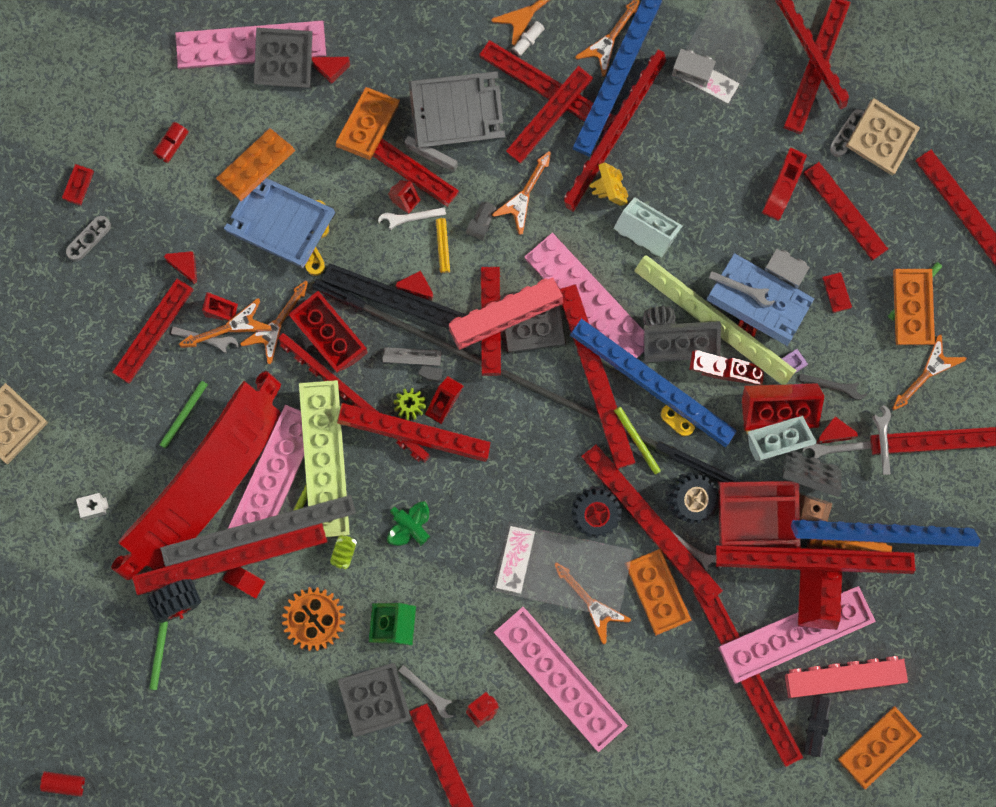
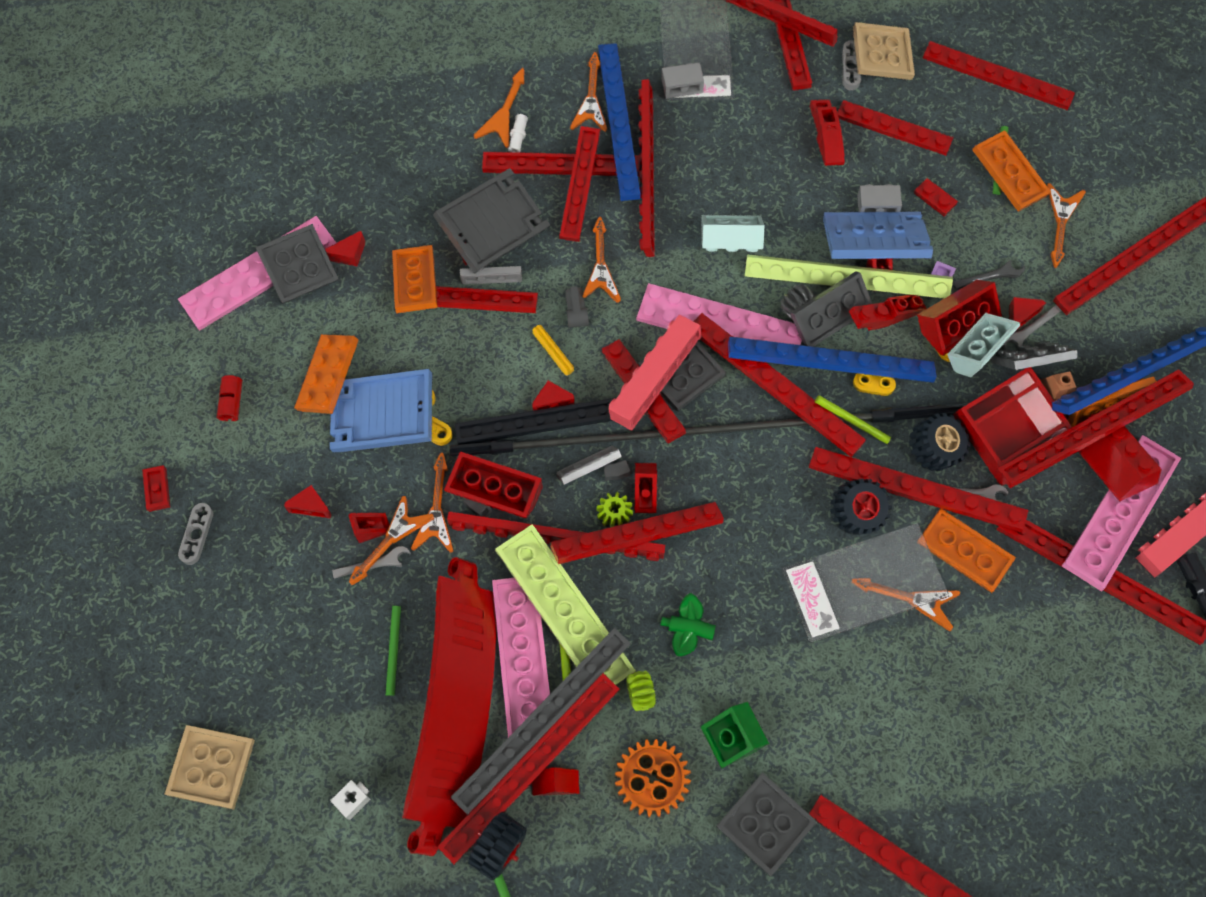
camera: 25 degrees left, 10 degrees down
(153, 331) = (314, 586): red plate -> none
(396, 220) = (495, 350): white piece -> none
(404, 195) = (489, 322): red slope -> none
(438, 701) = (831, 786): light grey piece -> none
(482, 709) = (882, 766): red head -> none
(560, 679) = (935, 689): bright pink plate -> none
(610, 185) = (674, 213): yellow plate -> none
(756, 294) = (873, 228): light grey piece -> none
(882, 424) = (1058, 281): light grey piece -> none

